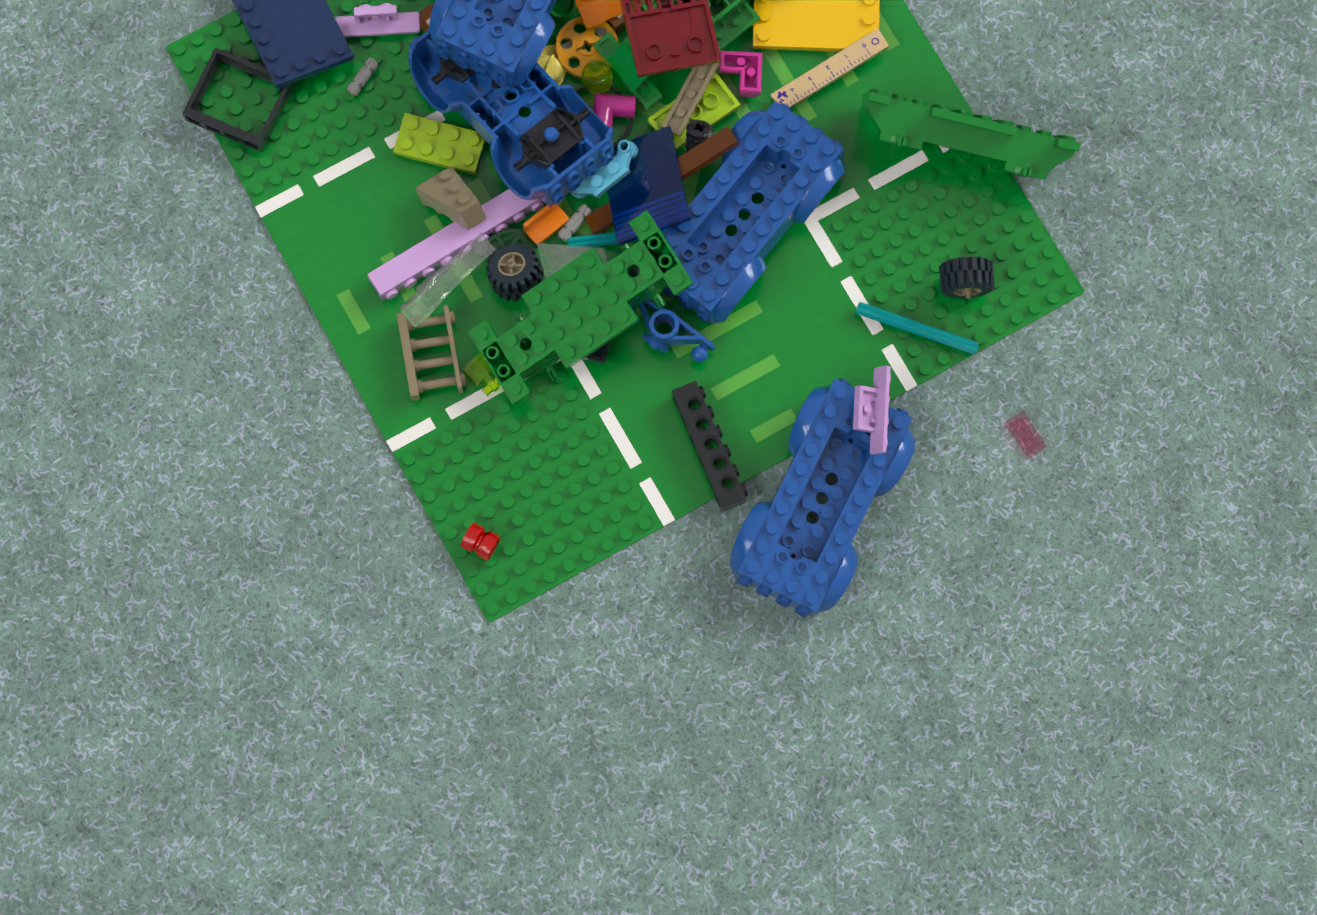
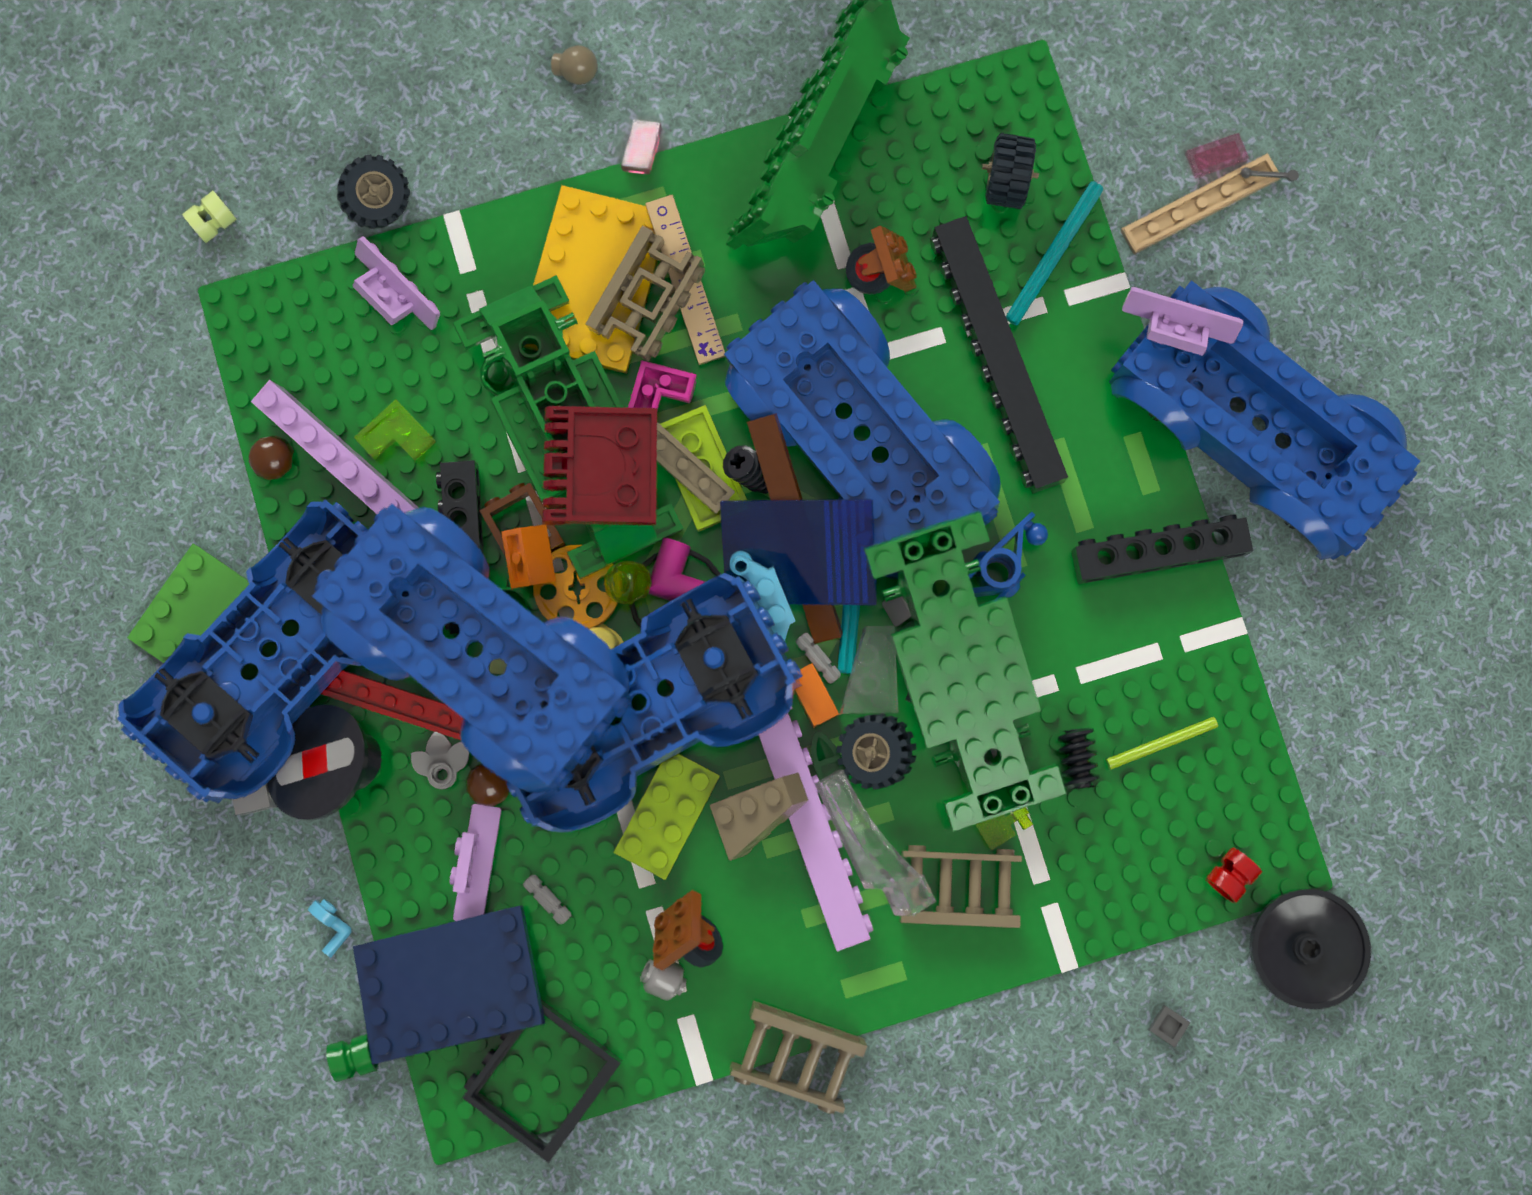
camera: 70 degrees left, 5 degrees up
(305, 279) = (793, 1027): none -> dark tan fence
(324, 164) = (663, 983): none -> light grey head
(357, 171) = (685, 933): none -> dark orange plate
(363, 522) = (1169, 1026): none -> dark grey plate
(439, 608) = (1310, 949): none -> black dish
(541, 415) = (1078, 758): none -> black piece
(567, 476) = (1162, 743): none -> lime bar
(816, 28) = (625, 284): none -> dark tan fence
(827, 302) = (999, 355): none -> black brick
(876, 205) = (881, 264): none -> dark orange plate
(924, 21) = (641, 147): none -> clear pink tile
(984, 430) = (1197, 205): none -> tan tile
(1022, 491) = (1291, 175): none -> dark grey hinge

